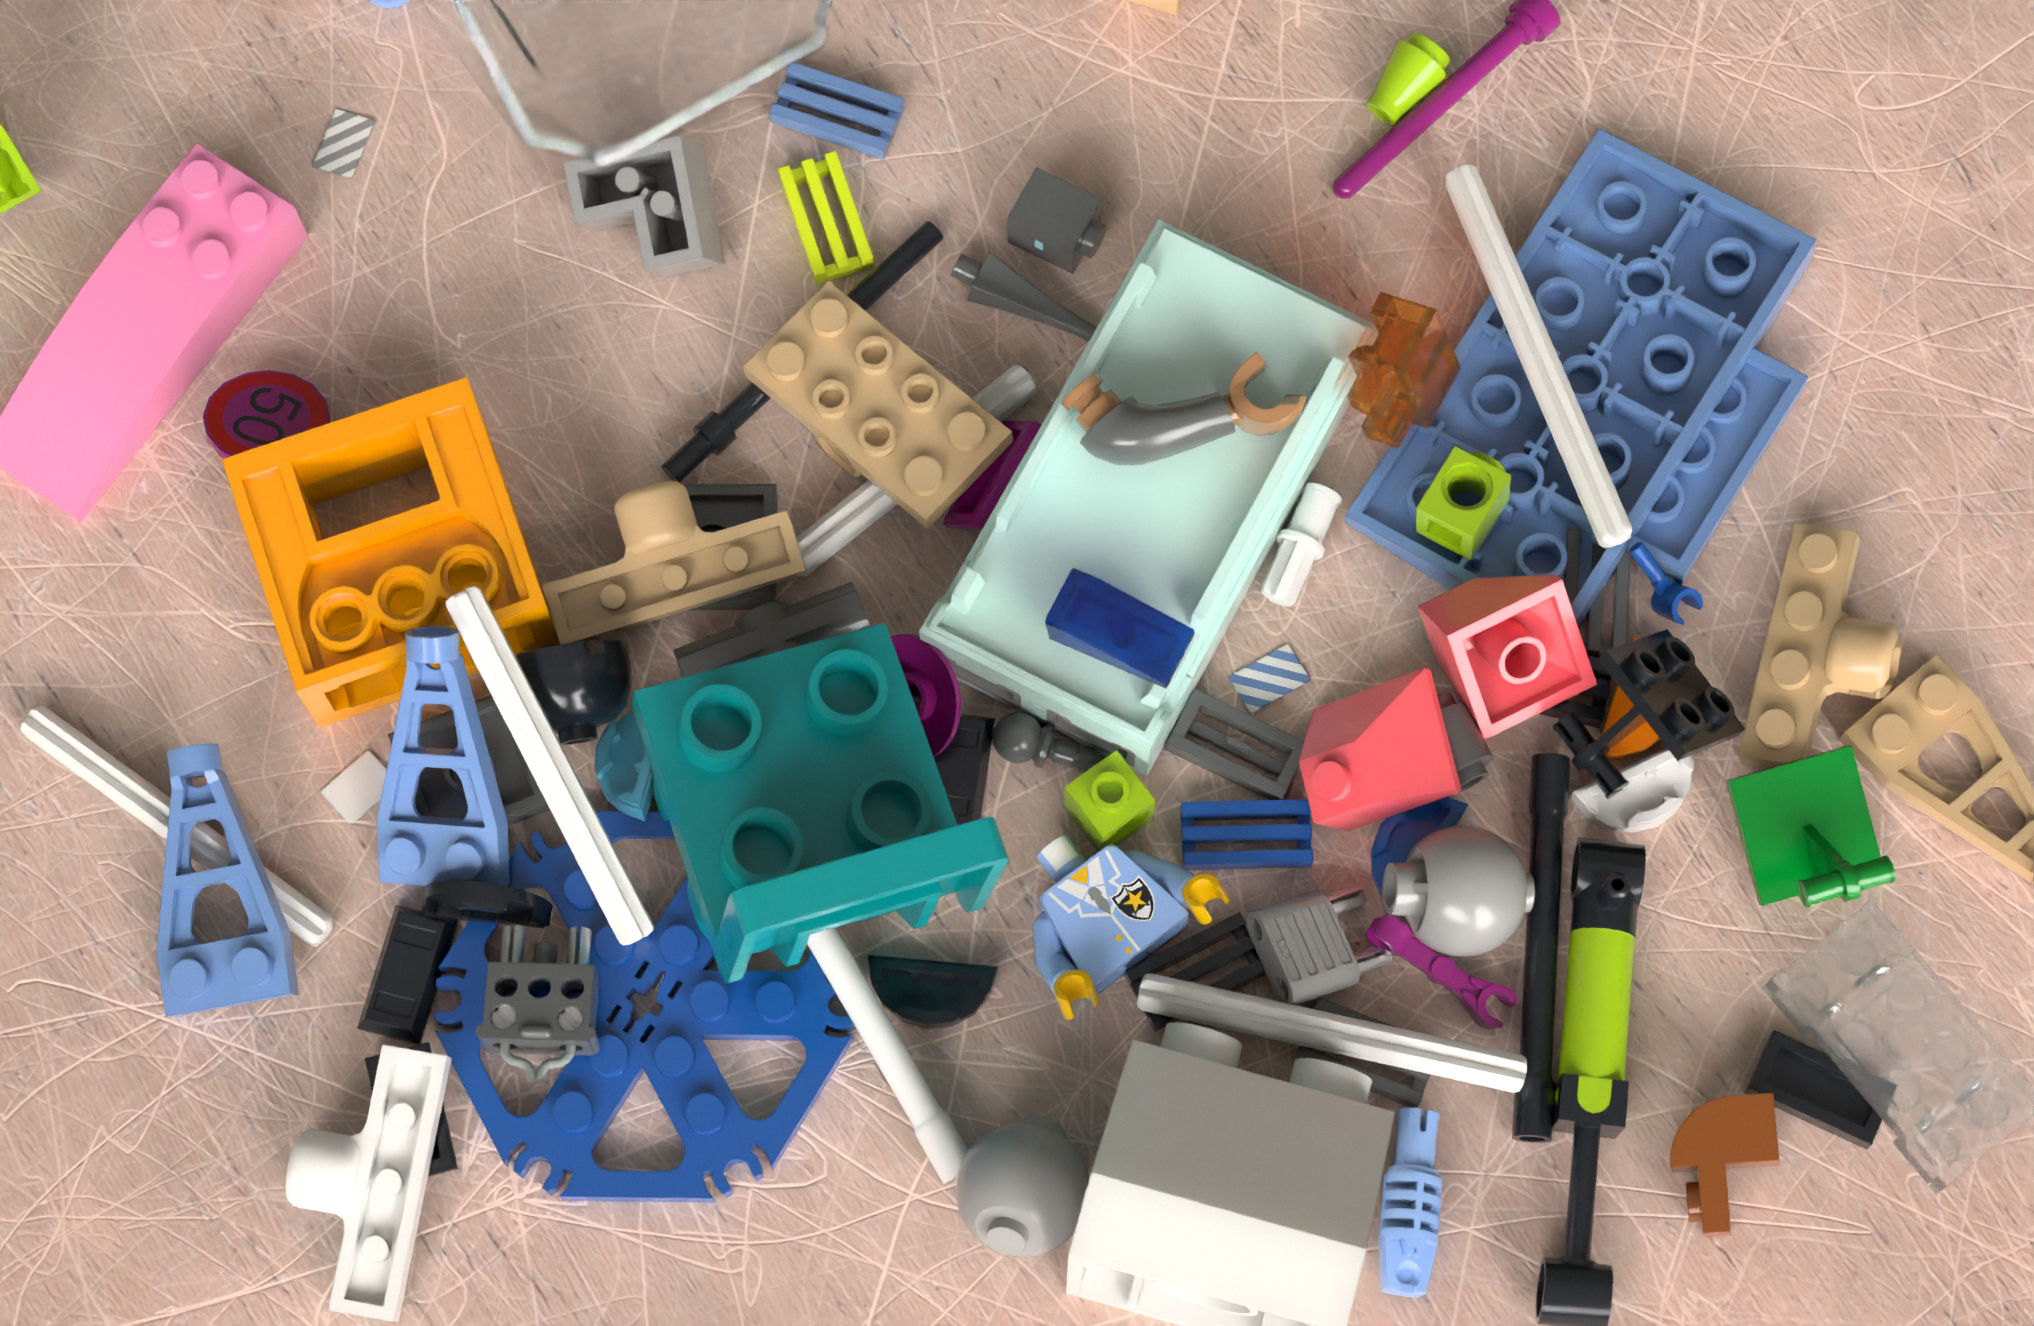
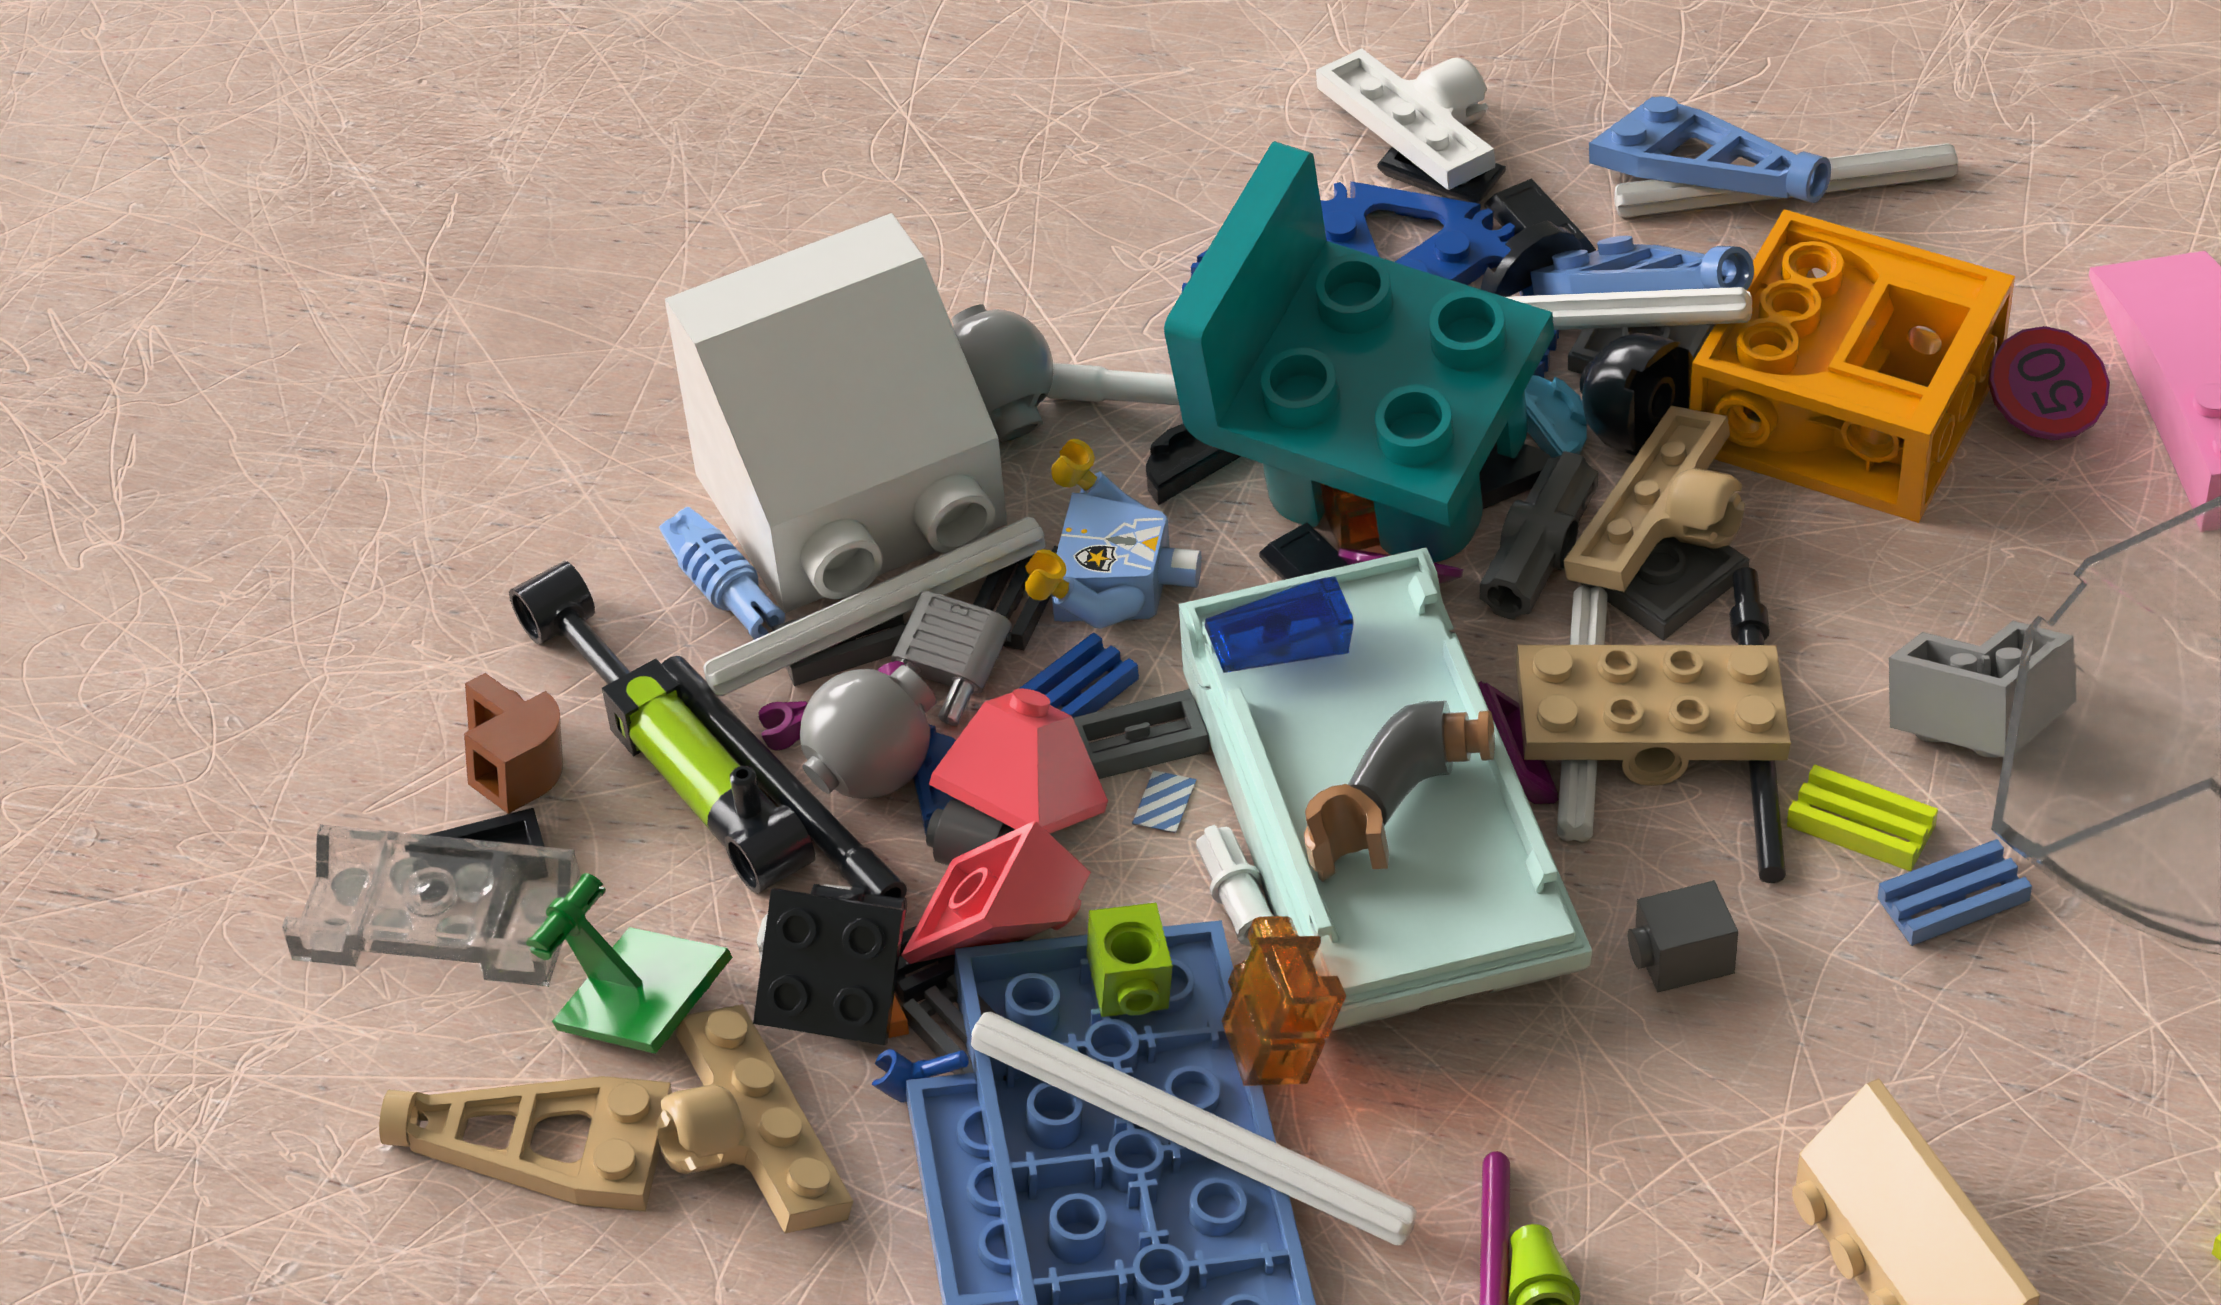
camera: 140 degrees right, 25 degrees down
(547, 1023) = (1425, 228): dark grey piece -> none
(1004, 289) = (1665, 870): dark grey piece -> none
(1109, 802) = (1172, 587): lime brick -> none

